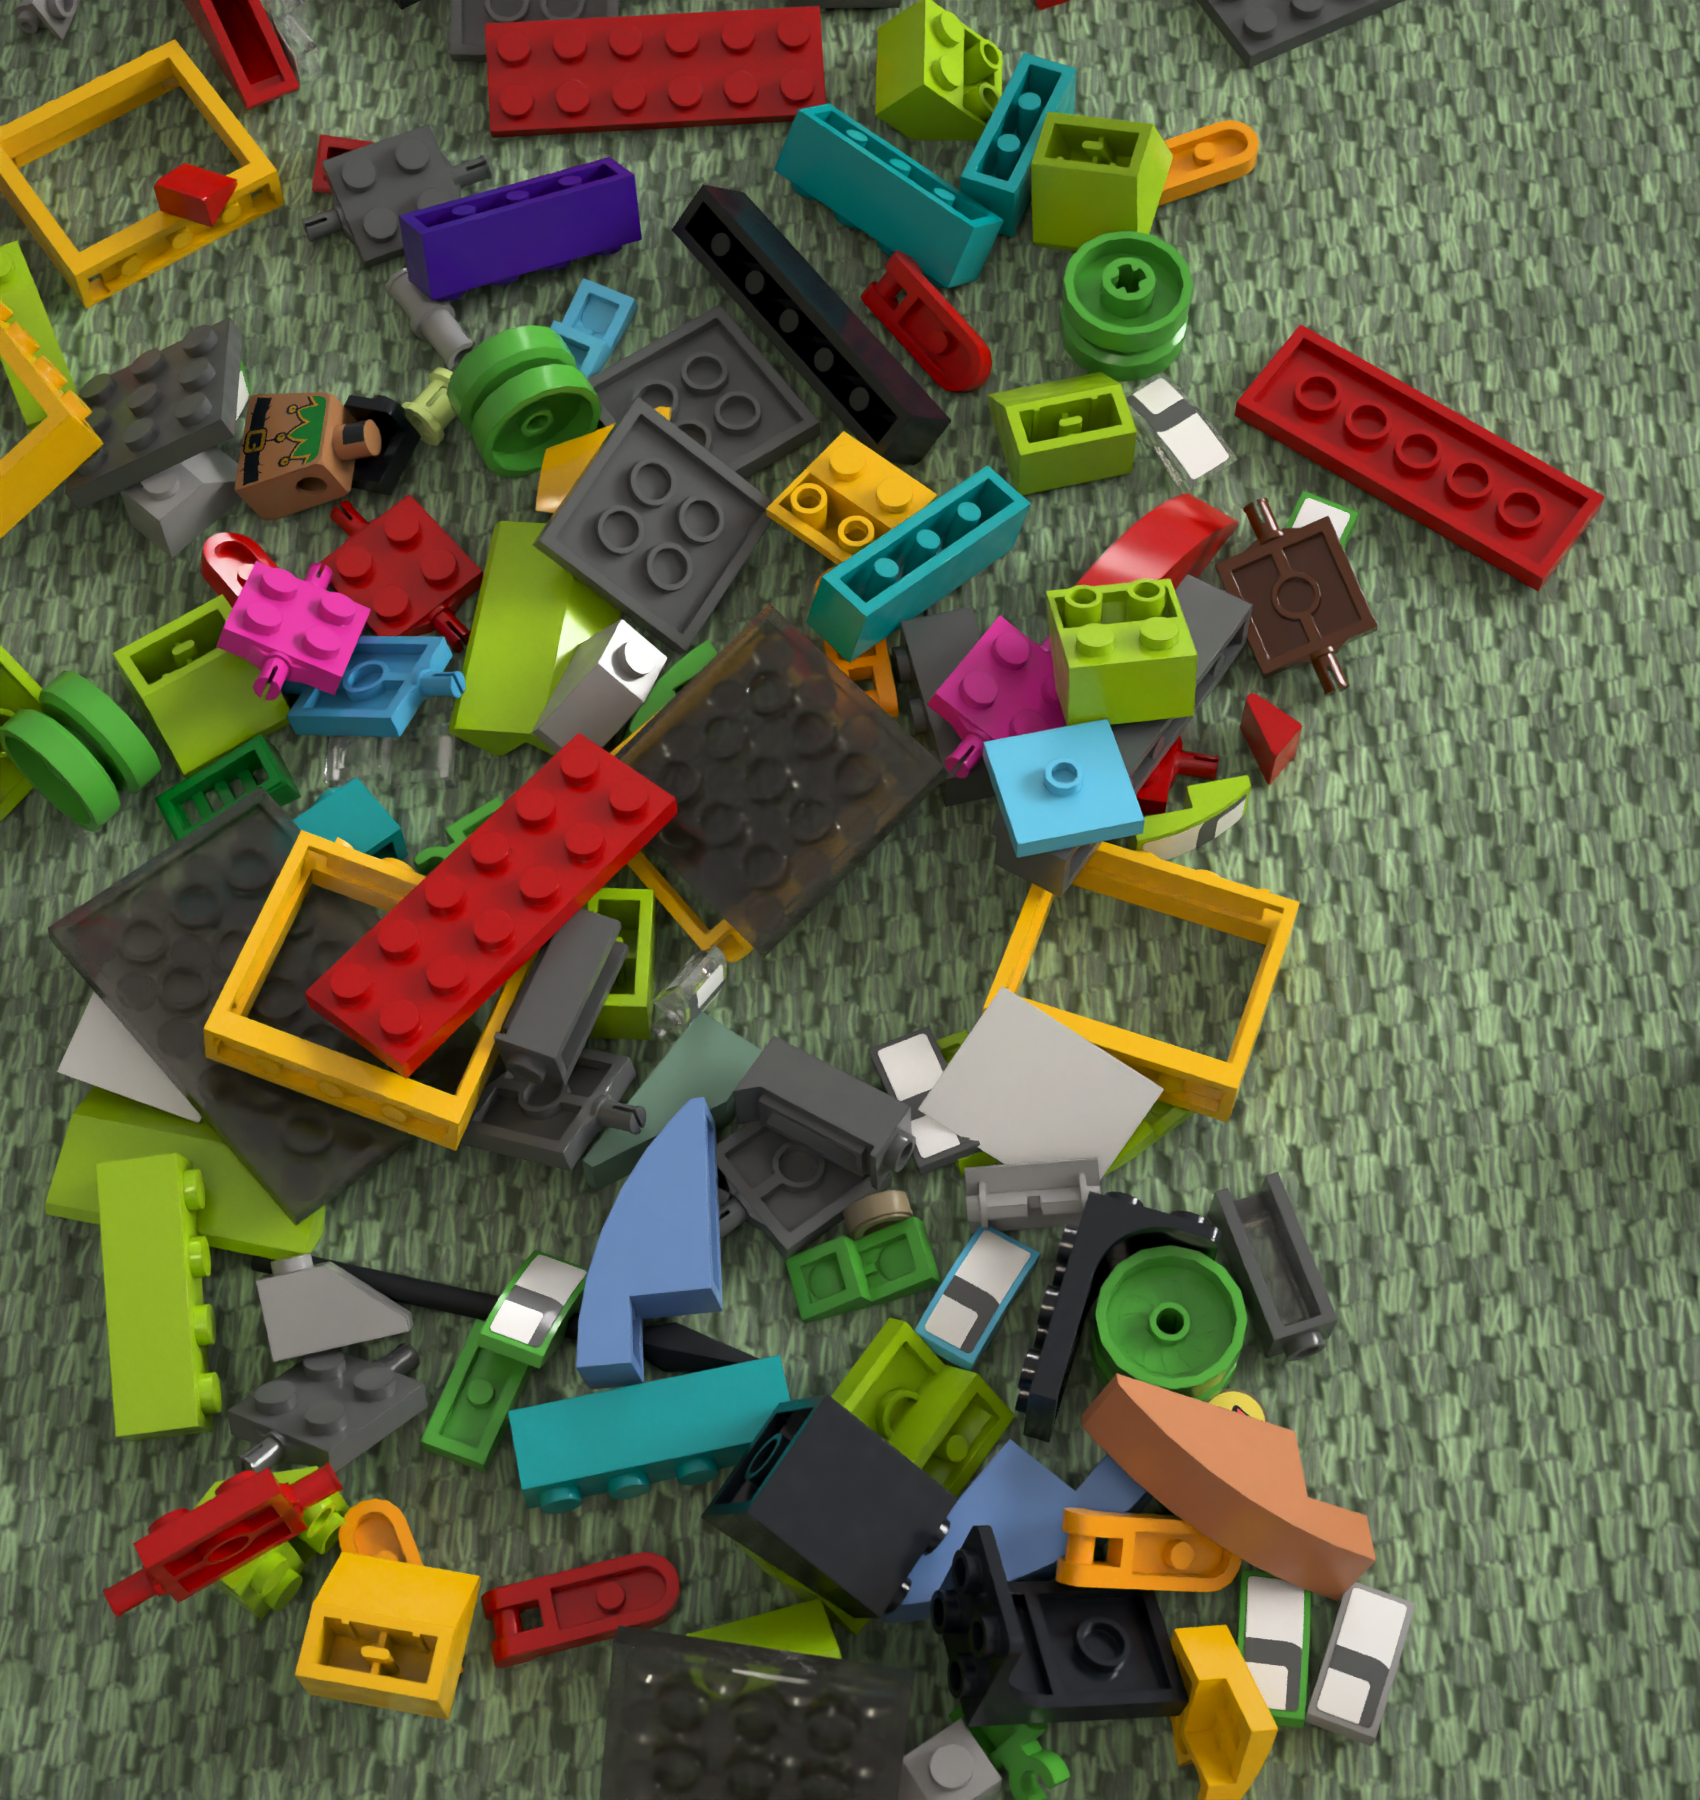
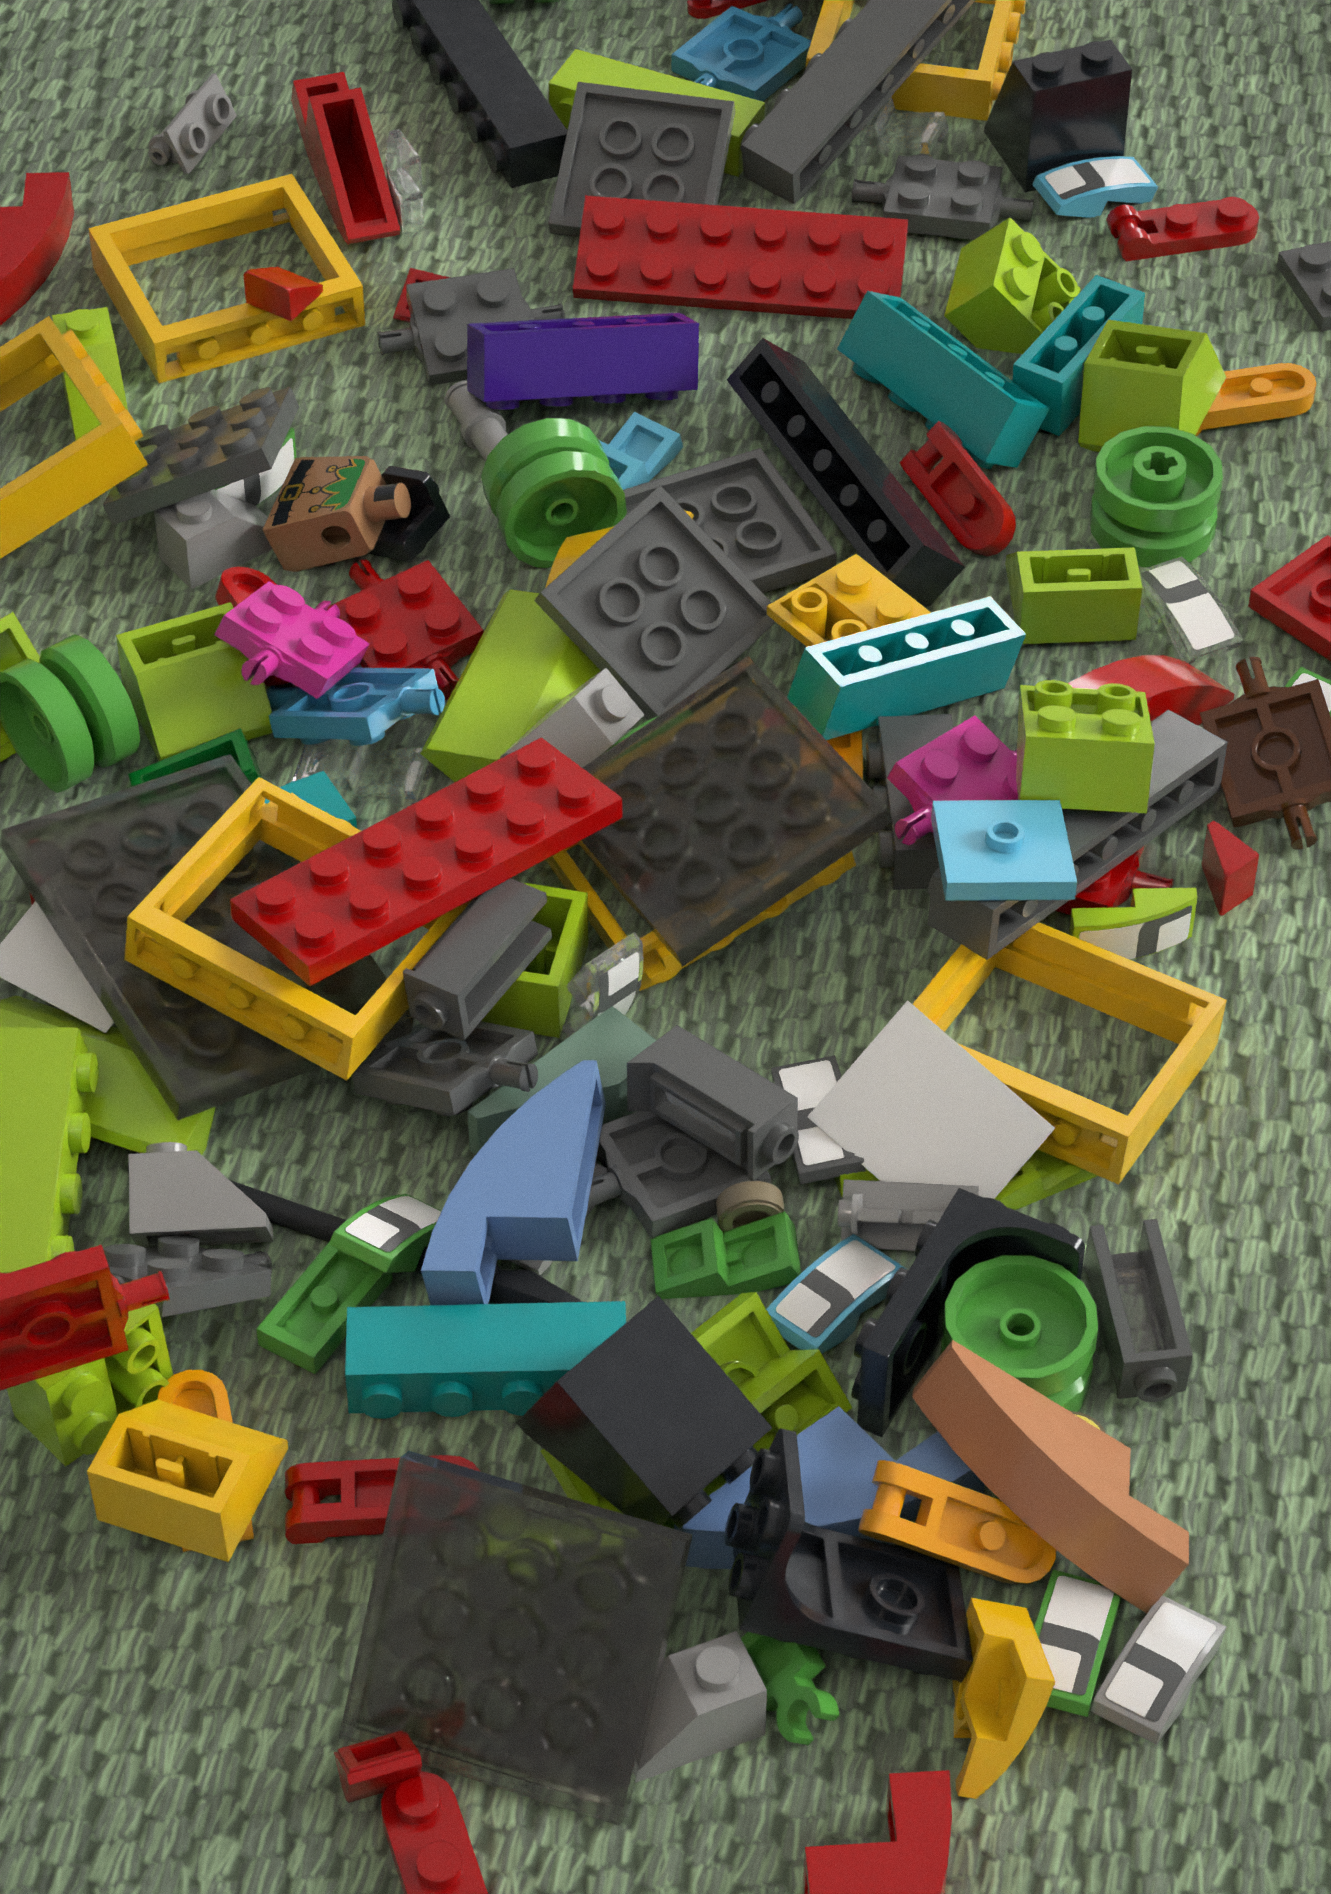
camera: 10 degrees right, 15 degrees down
(431, 408) = (465, 498): yellowish green bush -> none

